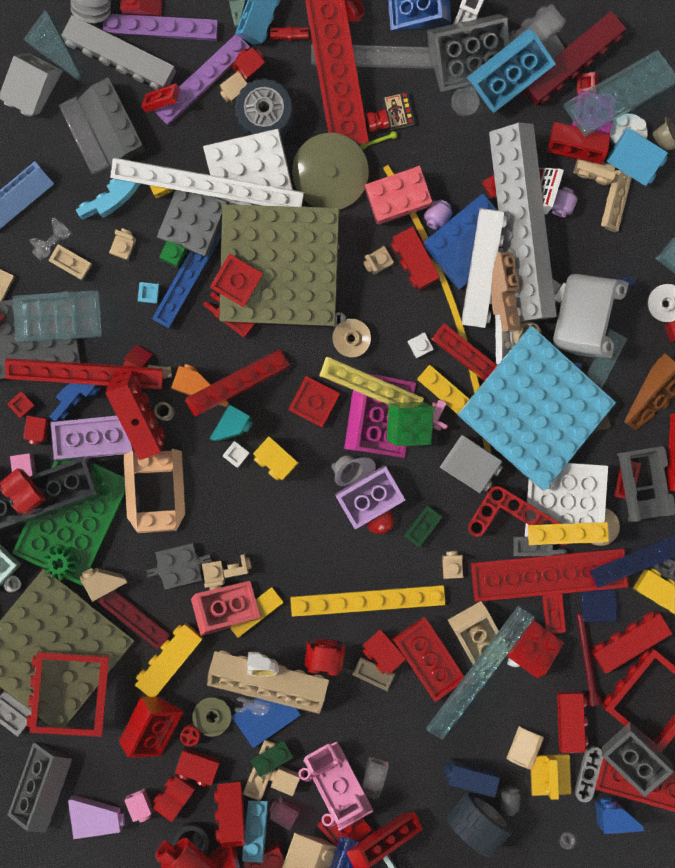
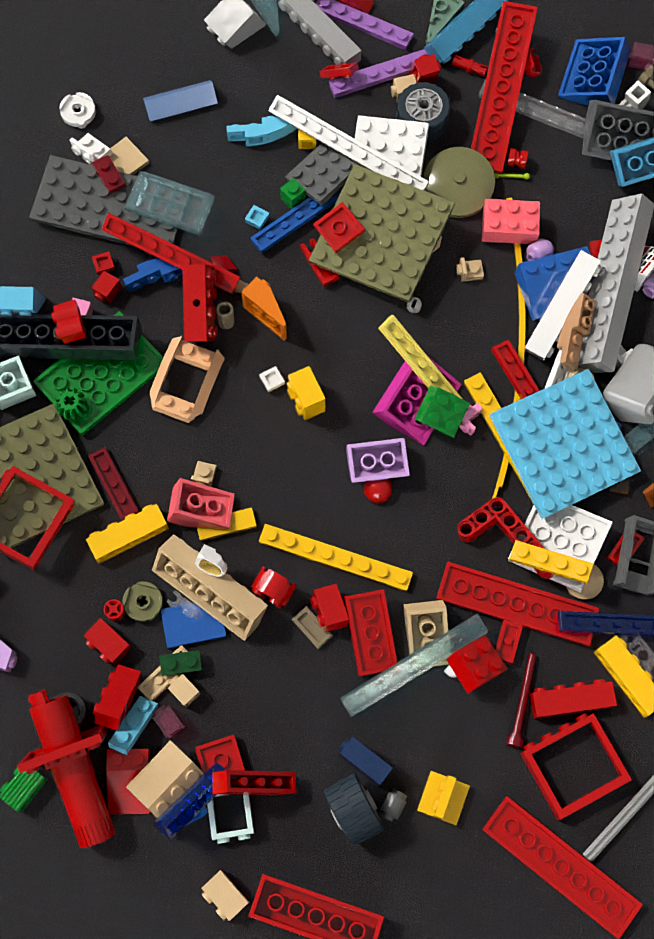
camera: 25 degrees right, 15 degrees down
(14, 584) = (21, 410): white hinge -> none
(42, 248) = (183, 148): clear piece -> none
(70, 262) = (201, 167): tan plate -> none
(84, 135) = (260, 78): clear tile -> none
(89, 438) = (153, 312): lavender plate -> none
(100, 582) = (98, 435): tan slope -> none
(110, 122) = (288, 71): dark grey slope -> none
(122, 244) = (253, 171): tan bracket -> none
(139, 805) = (35, 655): bright pink brick -> none
(150, 727) = (81, 584): red slope -> none
(173, 798) = (71, 661): red brick -> none
(178, 565) = (175, 454): dark grey plate -> none
(231, 424) = (279, 349): teal slope -> none
(234, 569) = (227, 479): tan bracket -> none
(237, 383) = (301, 312): red plate -> none
(314, 401) = (362, 362): red plate -> none
(336, 785) = (230, 711): bright pink container -> none
(349, 469) = (371, 430): light grey piece -> none
(360, 332) = (422, 314): tan dish -> none
(374, 778) = (268, 726): clear slope -> none
(398, 110) = (539, 159): piece -> none
(414, 258) = (504, 279): red brick -> none
(420, 345) = (478, 354): white plate -> none
(422, 526) = (415, 510): dark green plate -> none
(452, 565) = (429, 557): tan bracket -> none
(465, 101) = (600, 171): clear hair -> none
(472, 464) = (484, 469): light grey slope -> none
(522, 548) = (515, 572): dark grey hinge -> none
(525, 748) = (429, 760): tan piece -> none
(563, 842) = (430, 869): clear hinge -> none
(572, 721) = (485, 752): red brick -> none
(580, 786) = (495, 804): light grey beam -> none
(598, 606) = (554, 653): clear blue piece -> none
(615, 818) = (493, 863): blue slope -> none
(637, 759) = (536, 811): dark grey brick -> none

